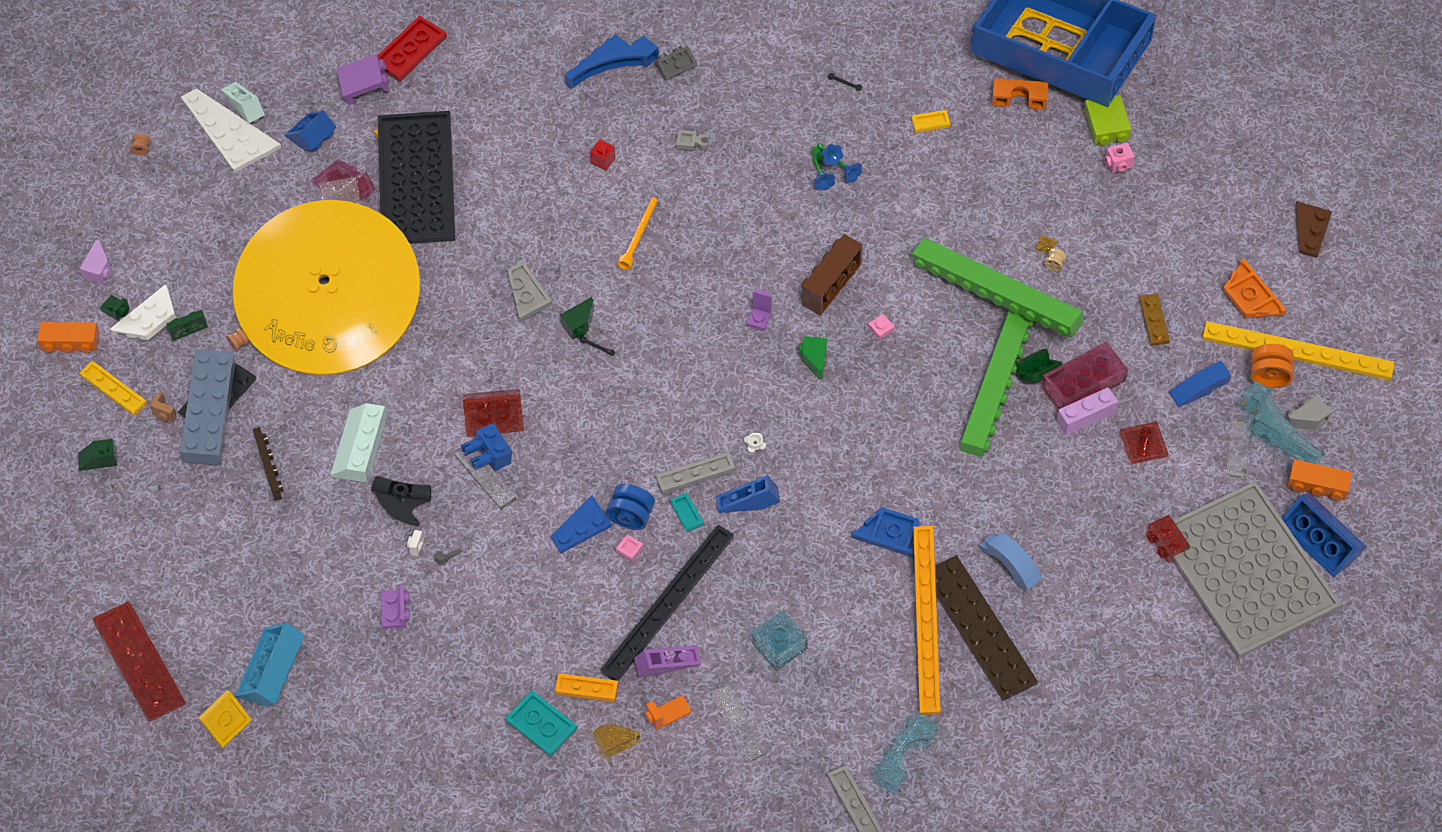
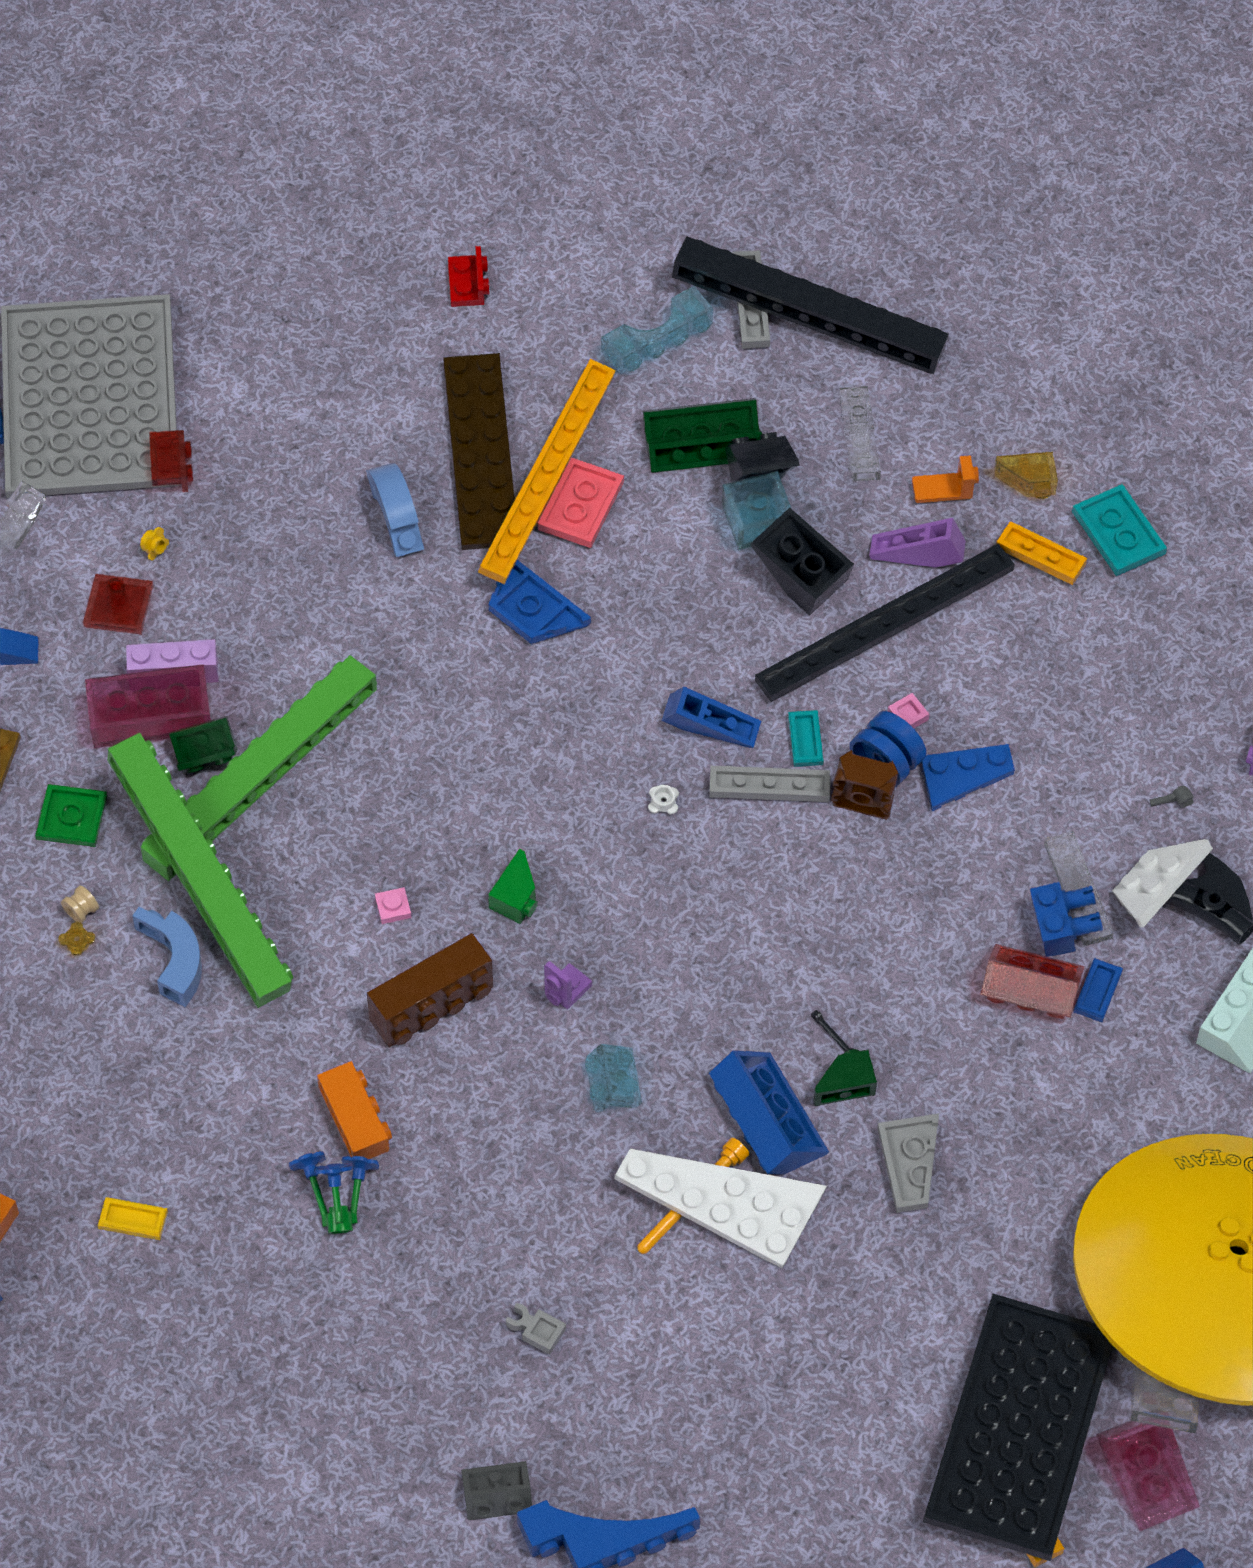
camera: 160 degrees left, 0 degrees up
(415, 543) = (1215, 824): white plate -> none
(439, 490) = (1158, 877): none -> white wing
(453, 424) = (1098, 990): none -> blue tile
(602, 154) = (695, 1349): red brick -> none
(614, 287) = (767, 1111): none -> blue slope
(617, 232) = (742, 1206): none -> white wing
(636, 474) = (864, 785): none -> reddish brown slope
(709, 276) = (613, 1077): none -> clear light blue bracket
(733, 609) = (802, 560): none -> black slope
(789, 664) = (760, 456): none -> black slope
(811, 803) = (809, 305): none -> black brick
(840, 689) = (697, 433): none -> dark green slope
(842, 206) = (354, 1111): none -> orange brick
(858, 87) = (215, 1329): black hinge -> none
(896, 612) = (580, 502): none -> coral plate
(981, 253) = (184, 970): none -> medium blue arch
(1054, 748) = (467, 279): none -> red bracket
(1096, 310) = (71, 815): none -> green tile
(1145, 484) = (154, 542): none -> yellow plate

